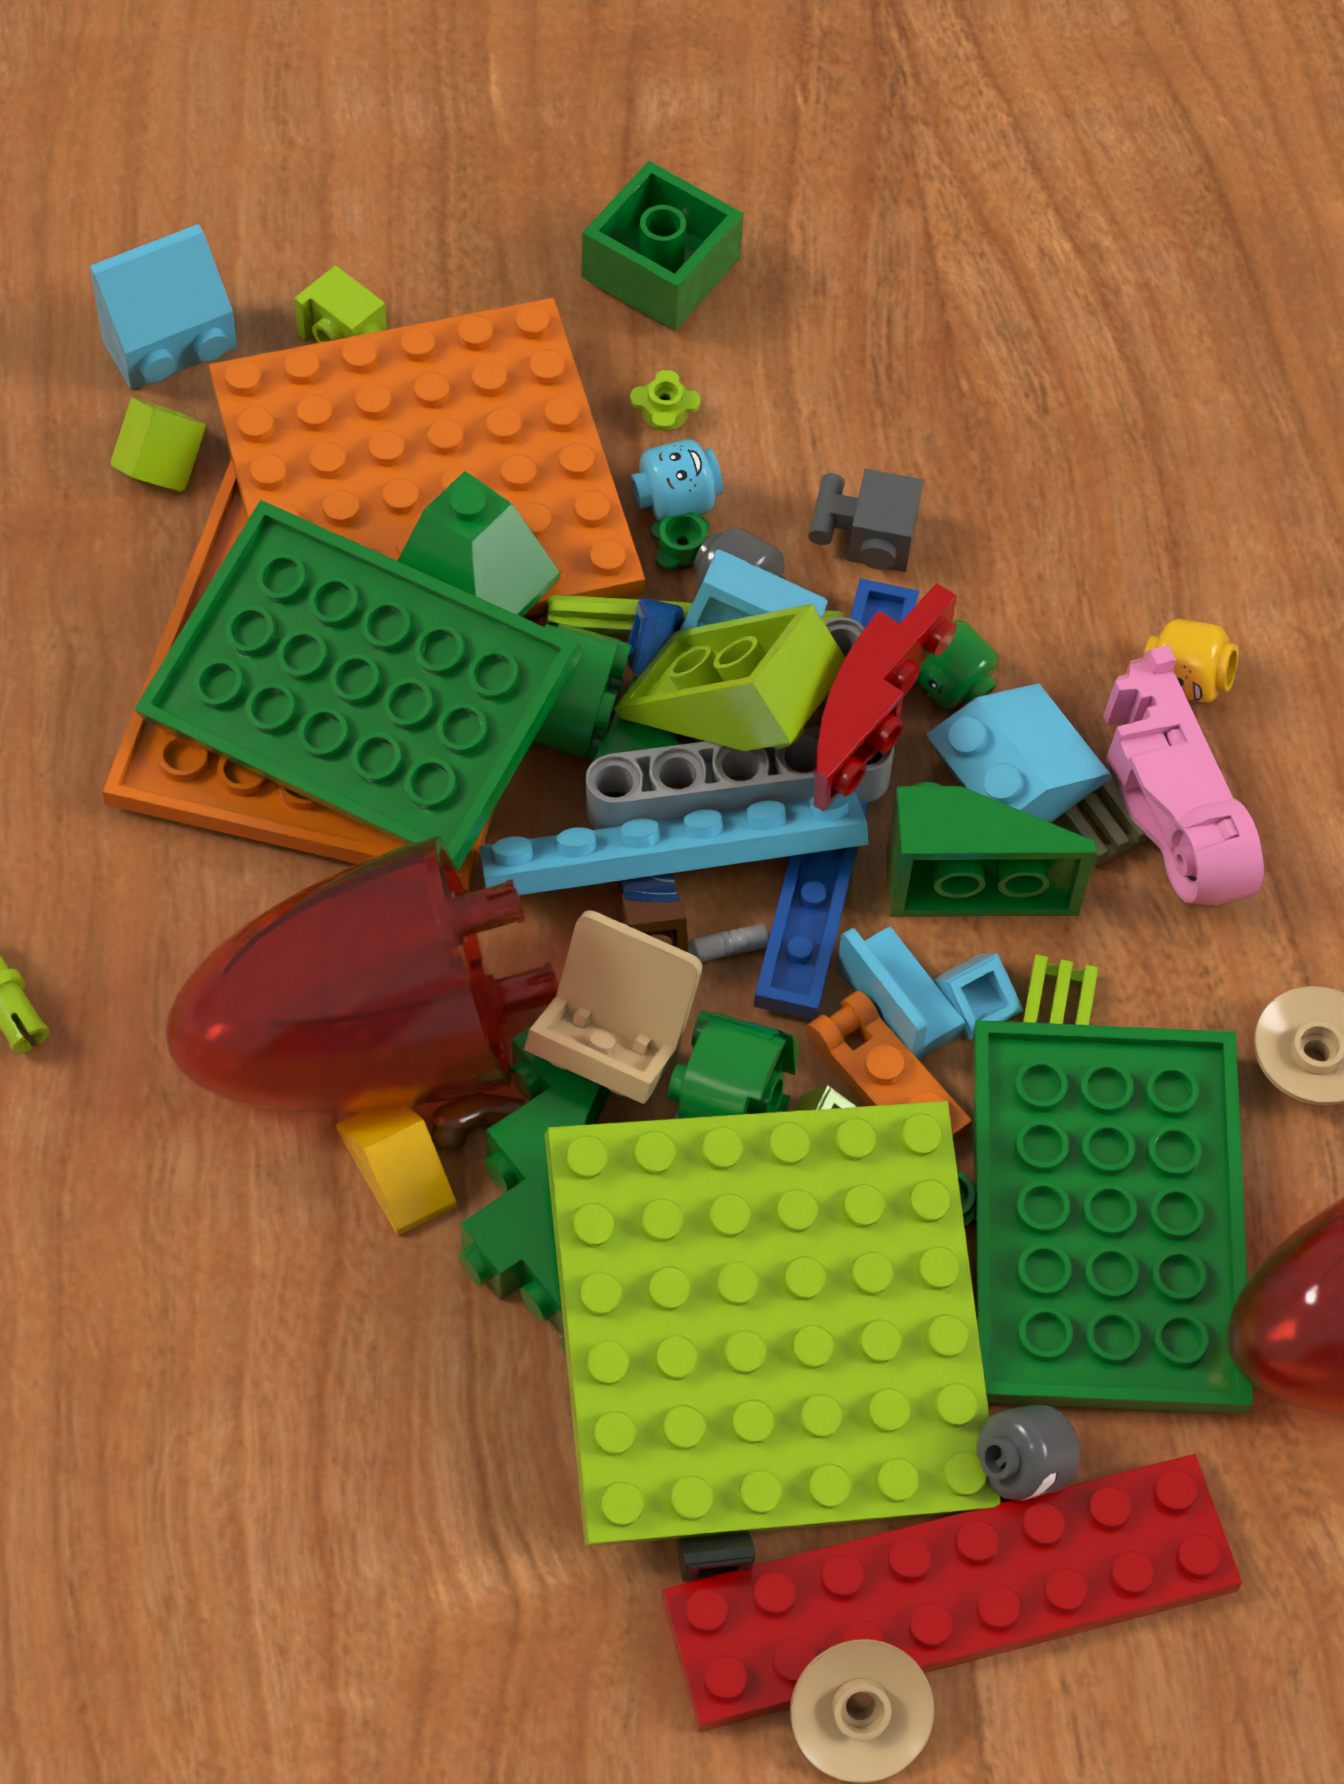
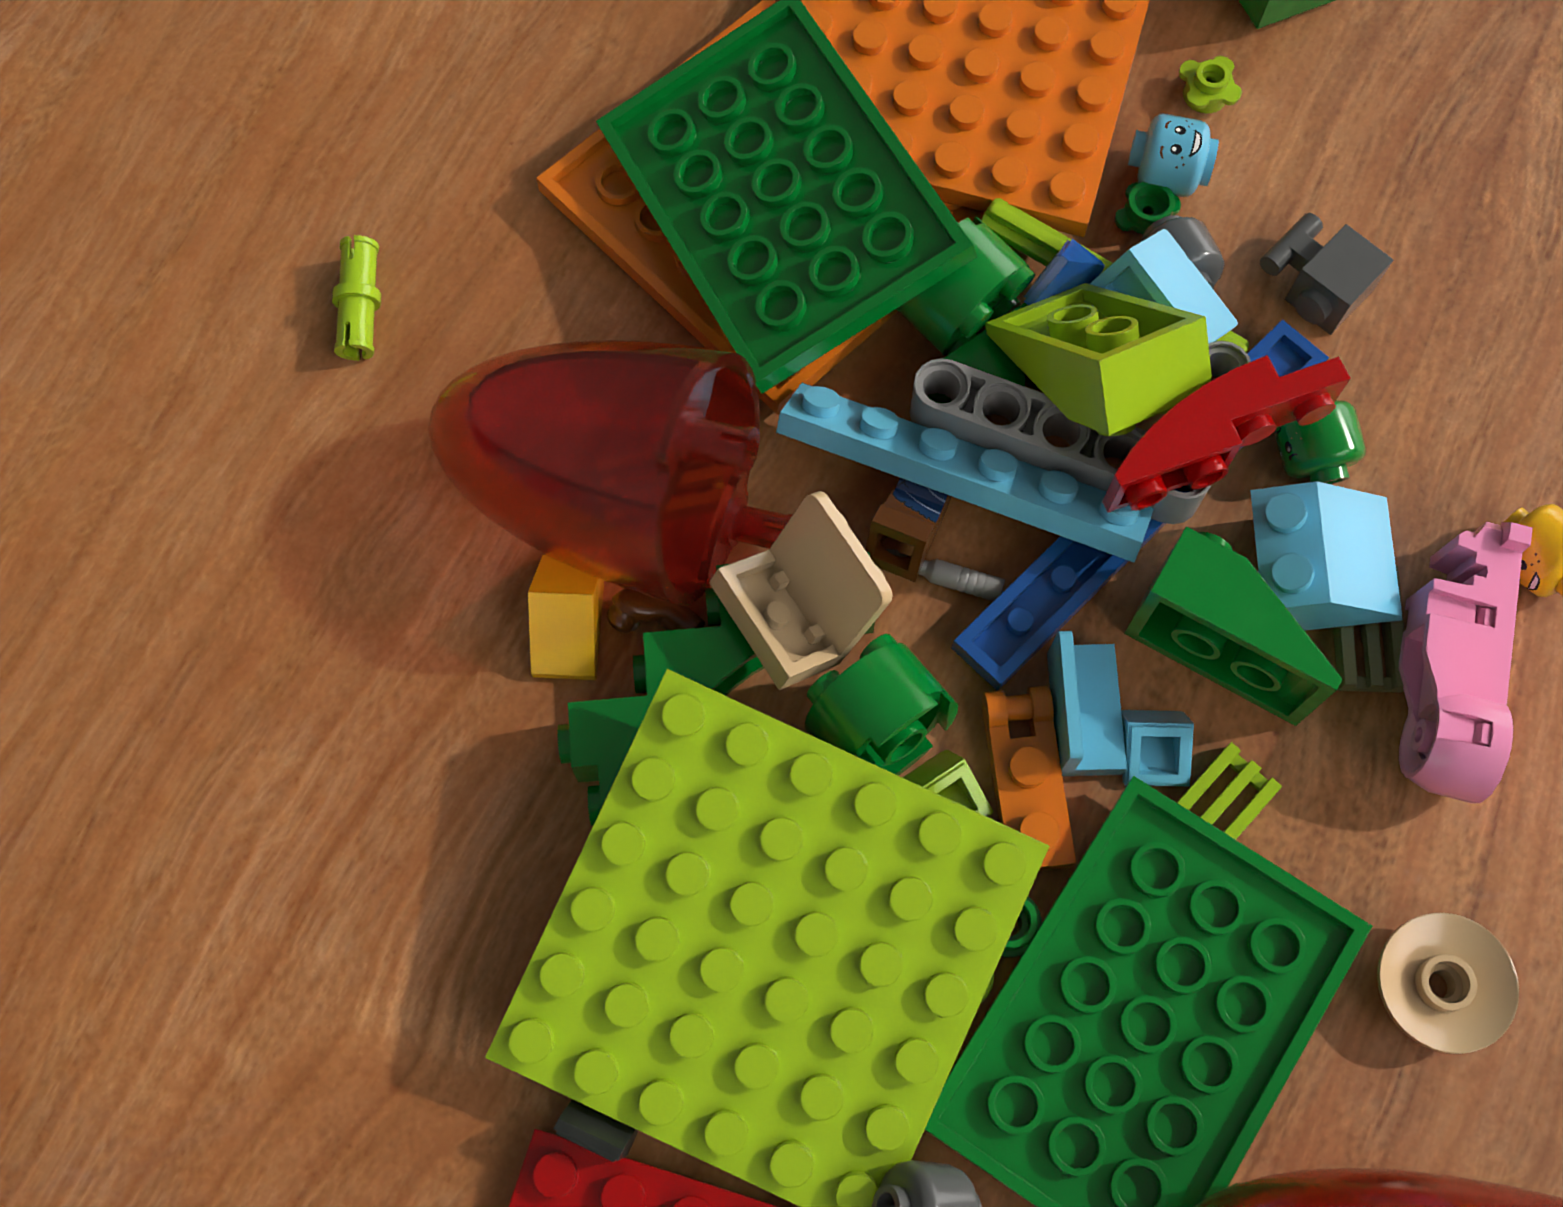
camera: 35 degrees right, 10 degrees up
(481, 547) = (952, 126): green slope -> none

